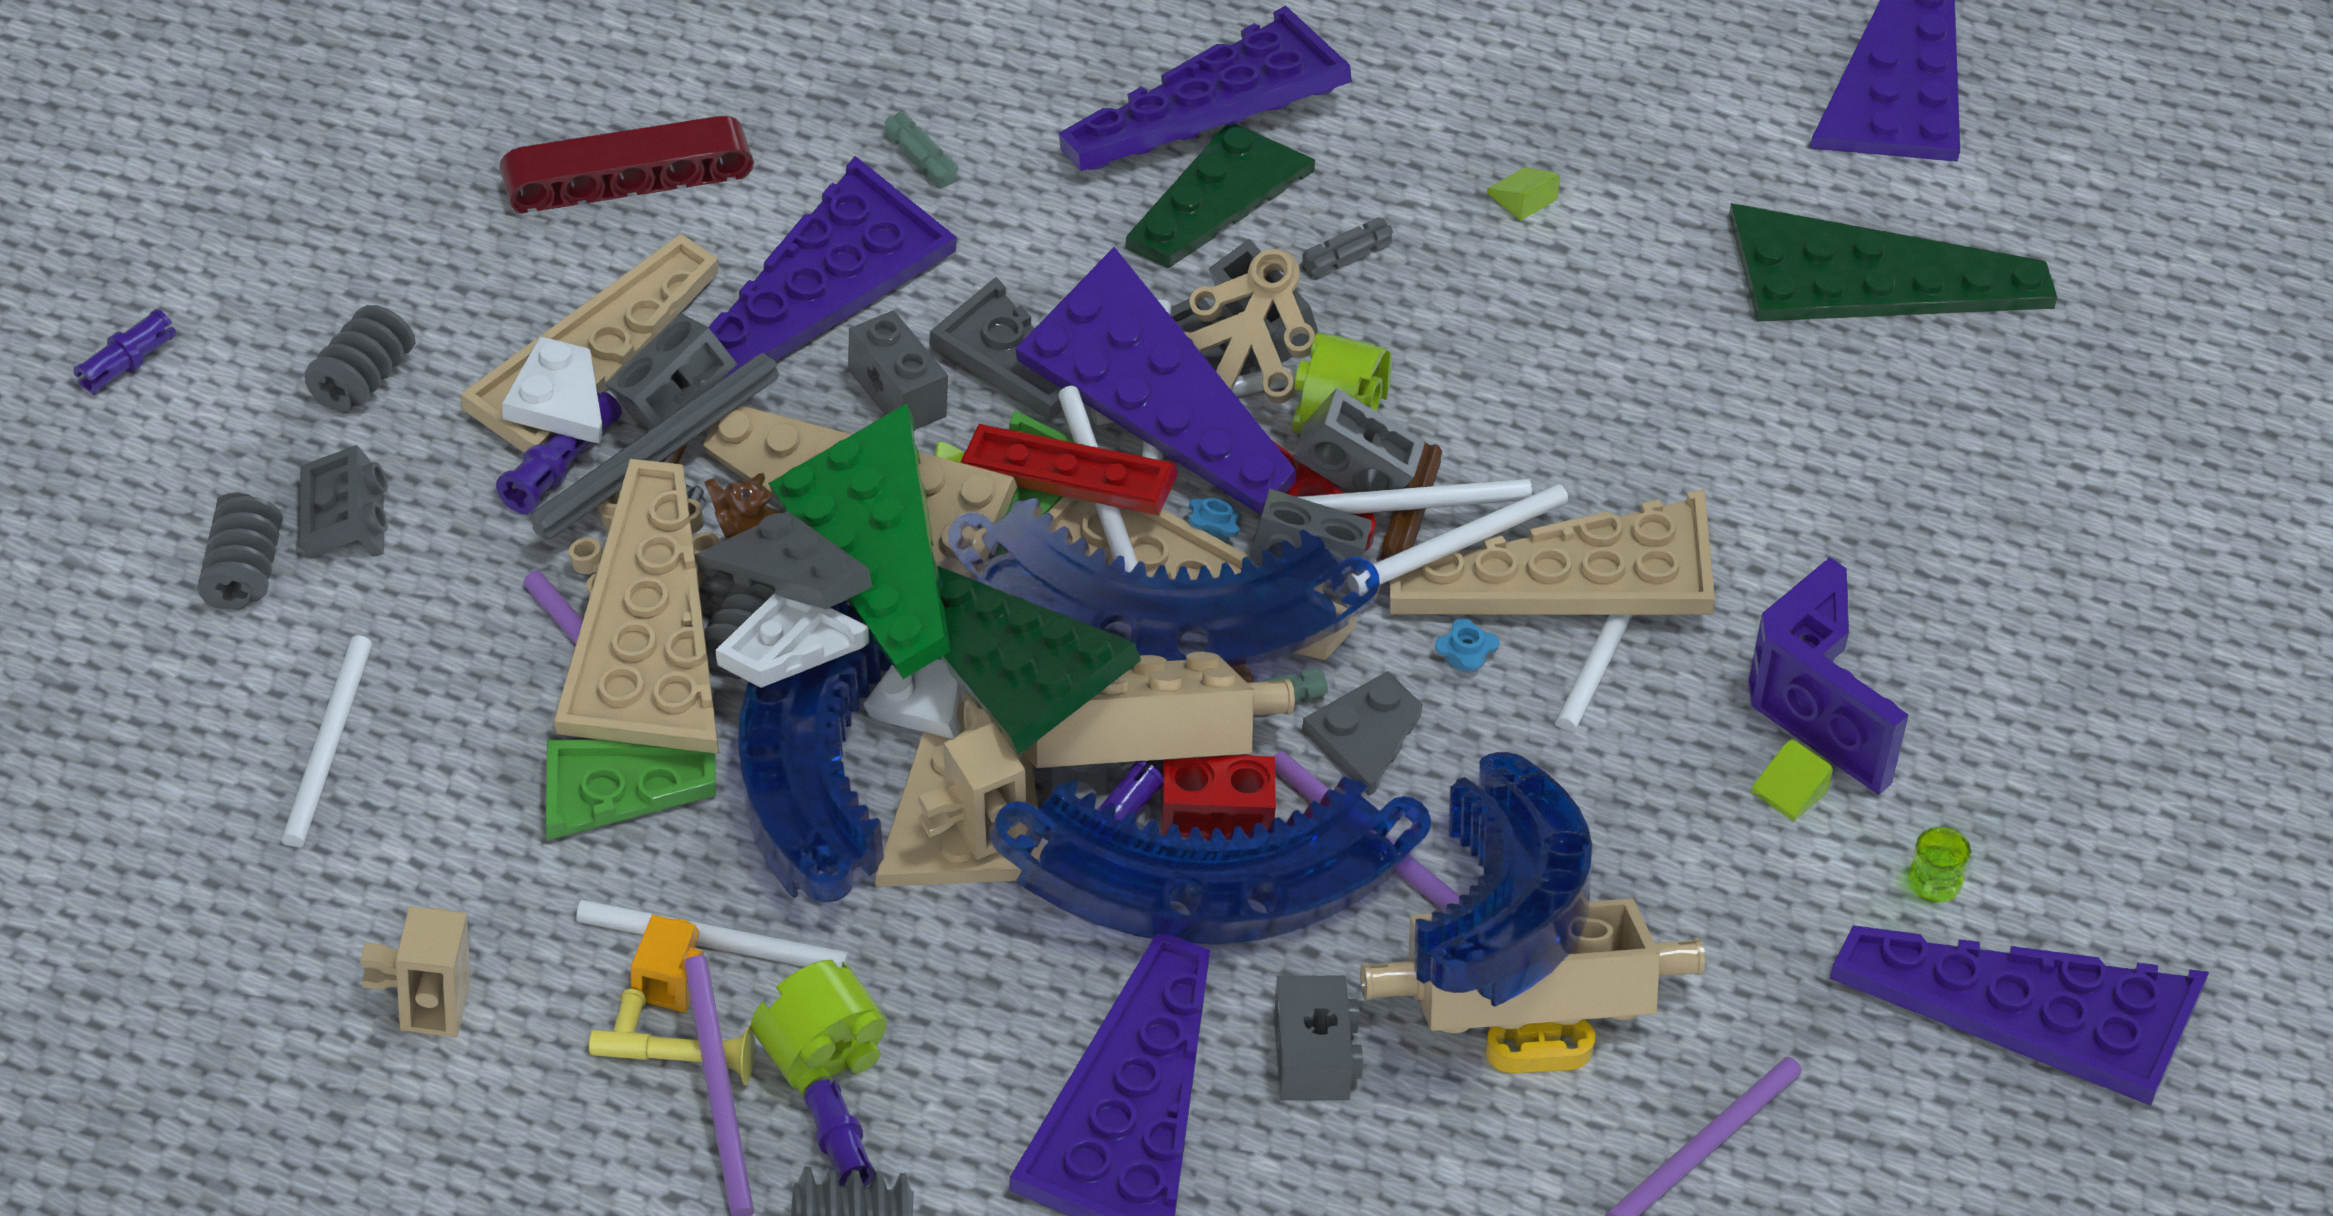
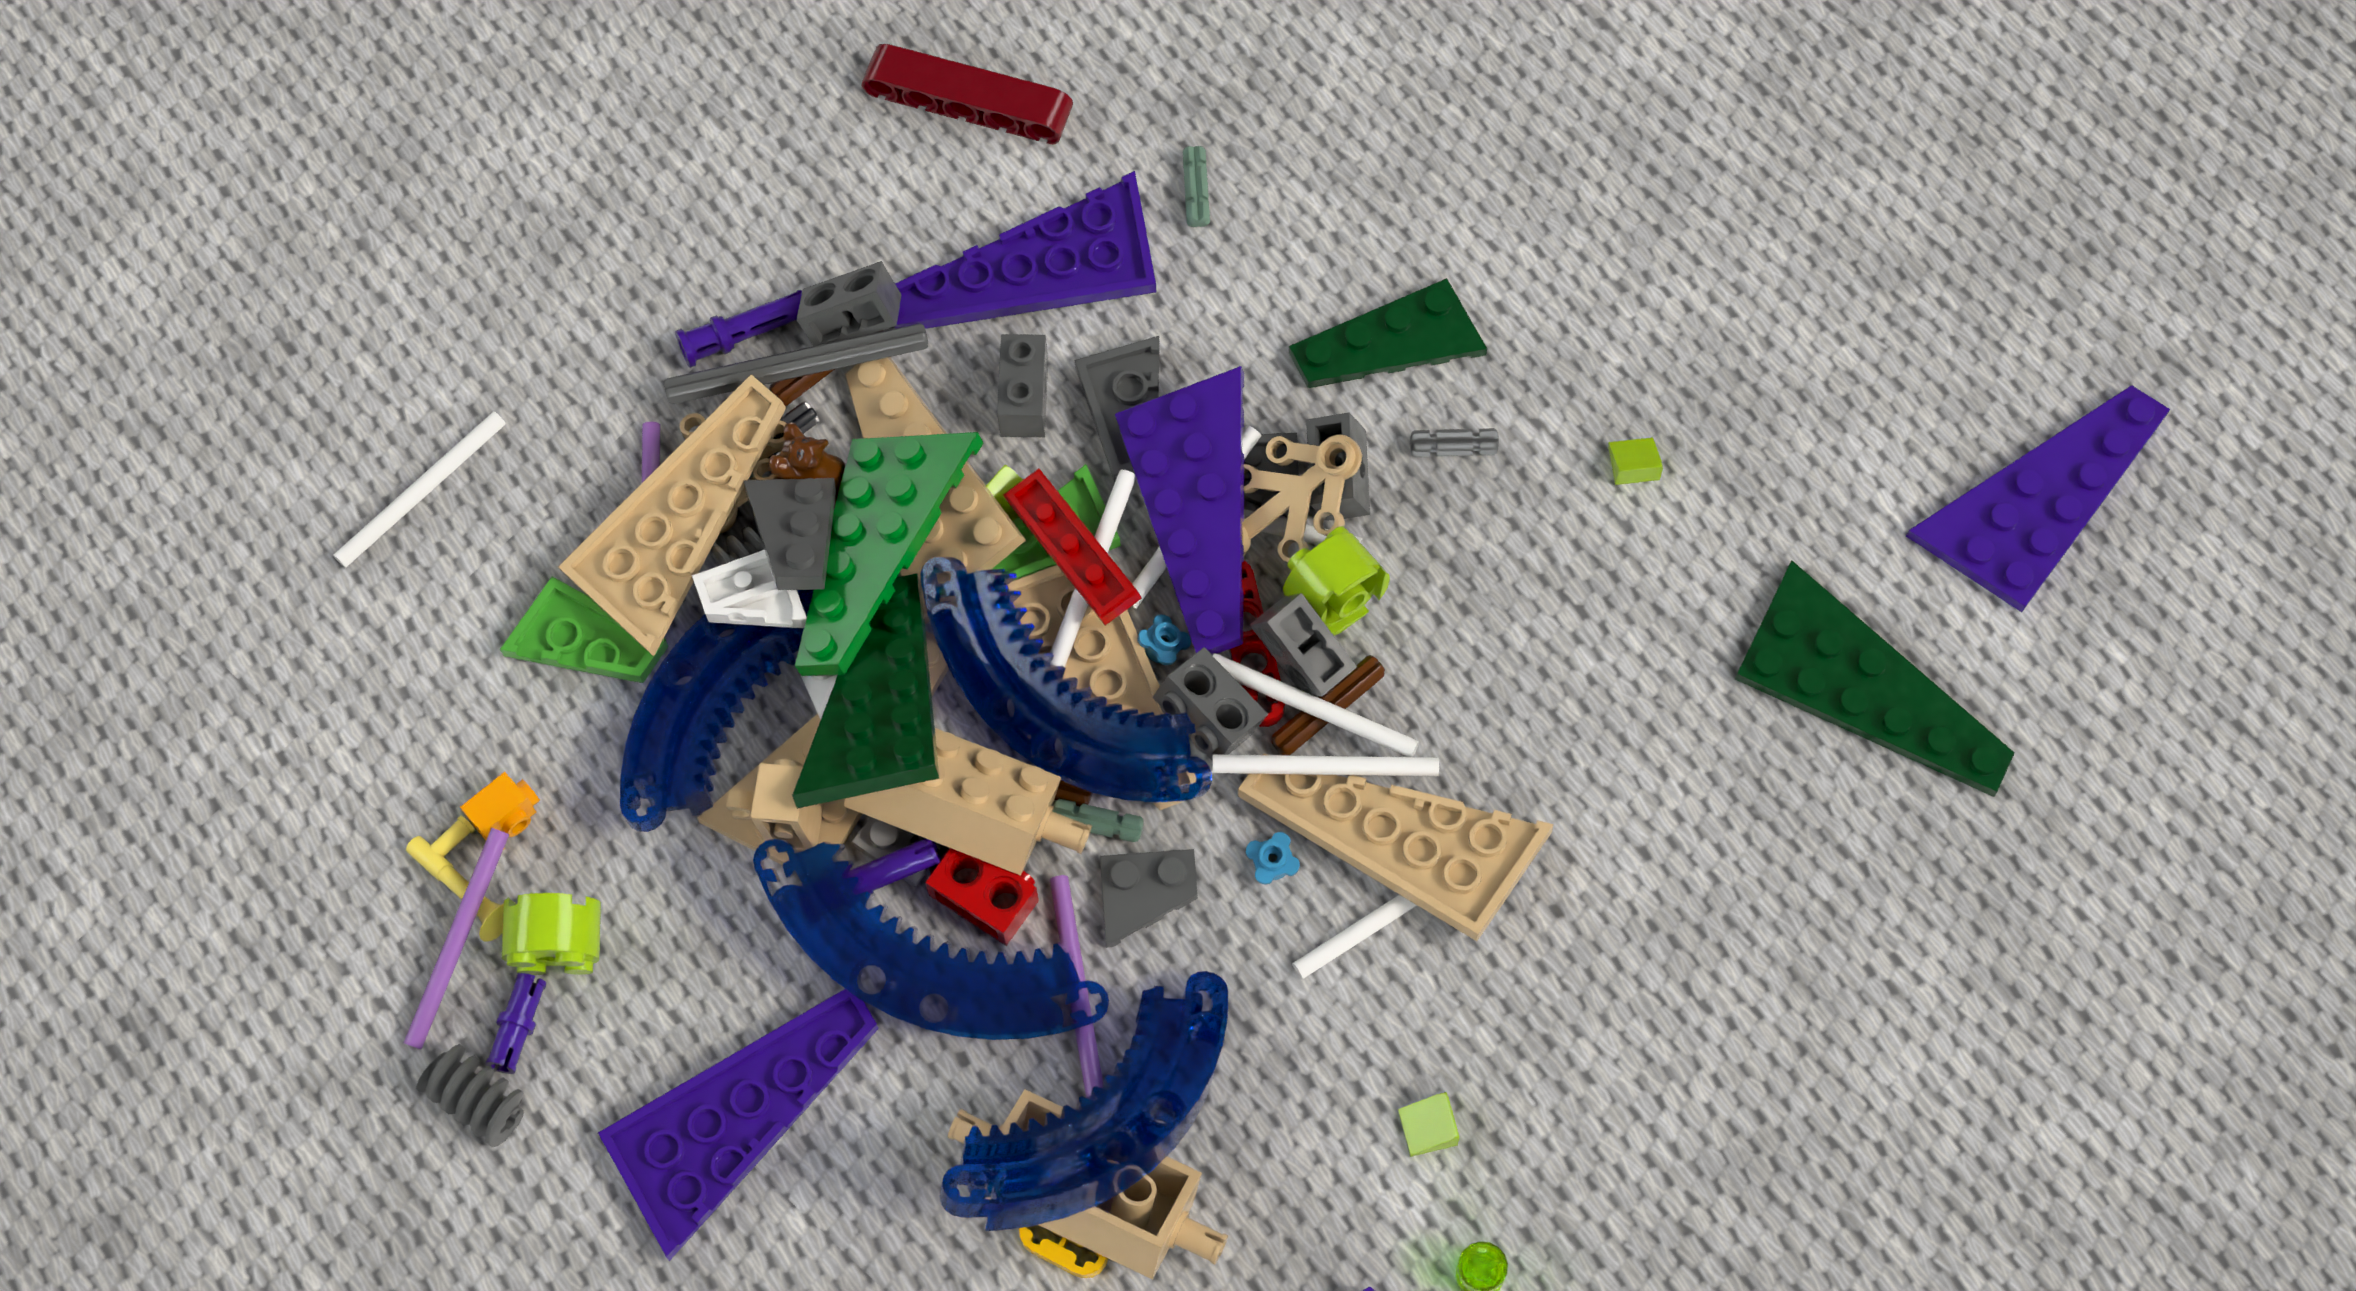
camera: 40 degrees right, 20 degrees up
(124, 351) = (511, 83): dark purple pin -> none
(239, 551) = (461, 298): dark grey piece -> none
(342, 503) = (564, 294): dark grey bracket -> none
(359, 358) = (657, 172): dark grey piece -> none
(427, 970) = (326, 731): tan brick -> none
(556, 392) = (764, 277): white wing -> none
(610, 324) = (808, 250): tan wing -> none
(713, 936) = (556, 803): white axle -> none
(1212, 90) = (1454, 245): dark purple wing -> none
(1315, 1038) = (898, 1116): dark grey brick -> none
(1813, 697) = (1522, 1014): dark purple bracket -> none

